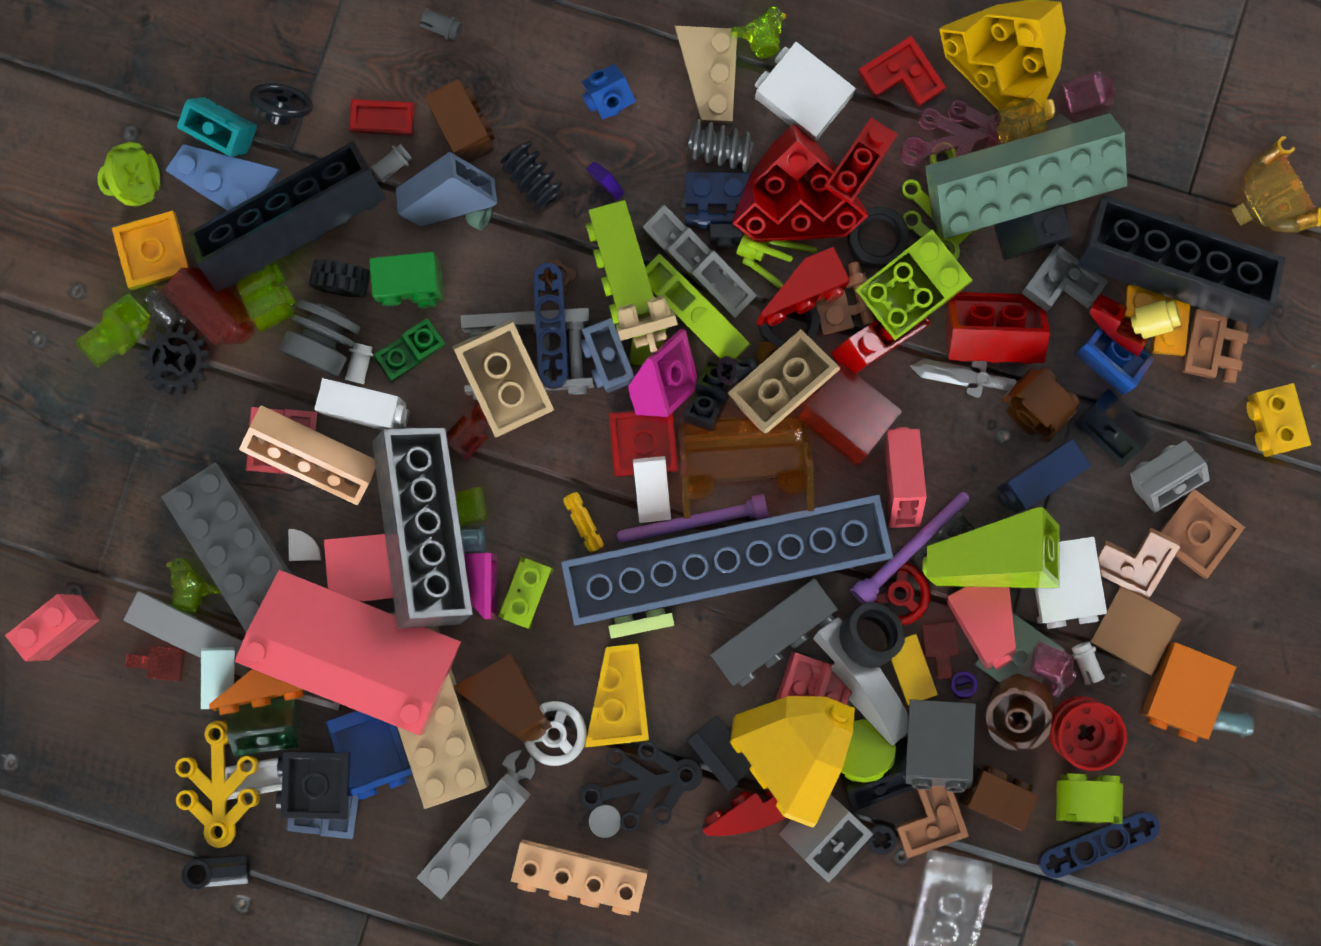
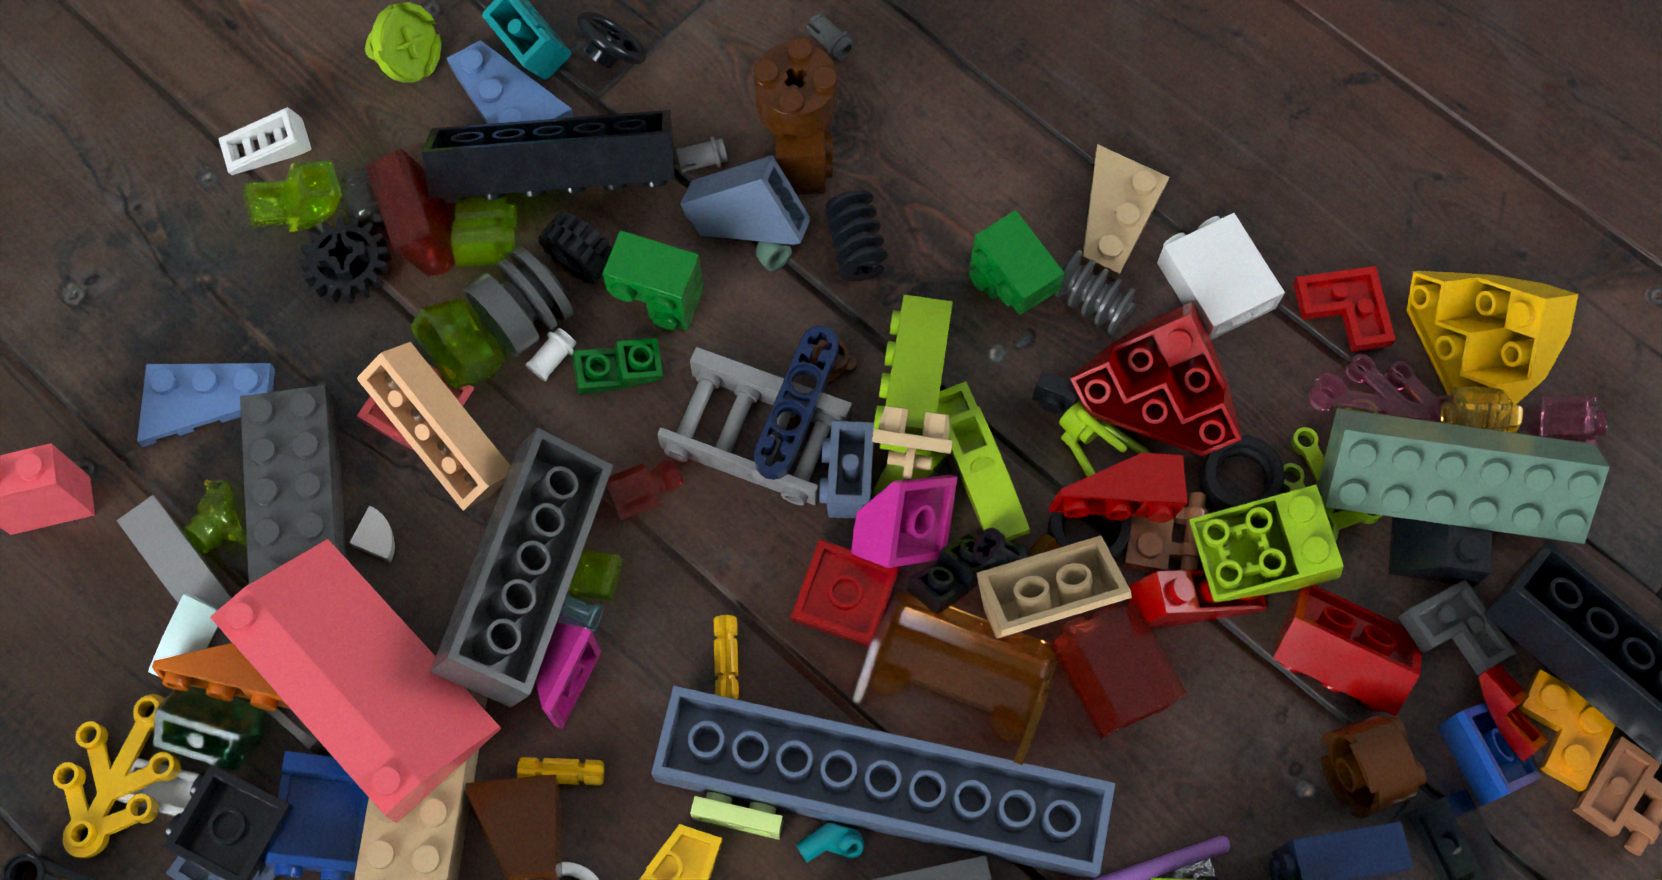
camera: 20 degrees right, 15 degrees down
(85, 277) = (284, 147): none -> white slope
(123, 505) = (193, 395): none -> medium blue wing
(150, 249) = (381, 126): light orange plate -> none
(162, 663) = (133, 596): clear red plate -> none
(288, 386) = (457, 342): none -> clear neon green brick
(359, 567) = (424, 584): coral brick -> none
(361, 406) = (525, 394): white brick -> none
(382, 117) = (715, 105): red tile -> none
(439, 79) = (795, 89): none -> reddish brown brick
(503, 378) = (709, 434): tan slope -> none
(512, 645) = (567, 770): none -> yellow axle
(525, 592) = (611, 708): lime window -> none
(605, 180) = (939, 275): dark purple tile -> none
(607, 92) = (986, 179): blue brick -> none
(652, 489) = (829, 653): white tile -> none
(657, 155) = (1013, 264): none -> green brick
(698, 261) = (1009, 412): light grey slope -> none
(710, 609) = (832, 838): none -> teal arm
(713, 189) = (1059, 340): dark blue plate -> none
(753, 508) = (945, 733): medium lavender piece -> none
(763, 32) = (1197, 192): clear neon green animal -> none
(861, 161) = (1260, 374): red slope -> none
(904, 478) = (1155, 783): coral slope -> none
(962, 375) = (1281, 689): light grey sword -> none
(1156, 318) = (1565, 722): light yellow brick -> none

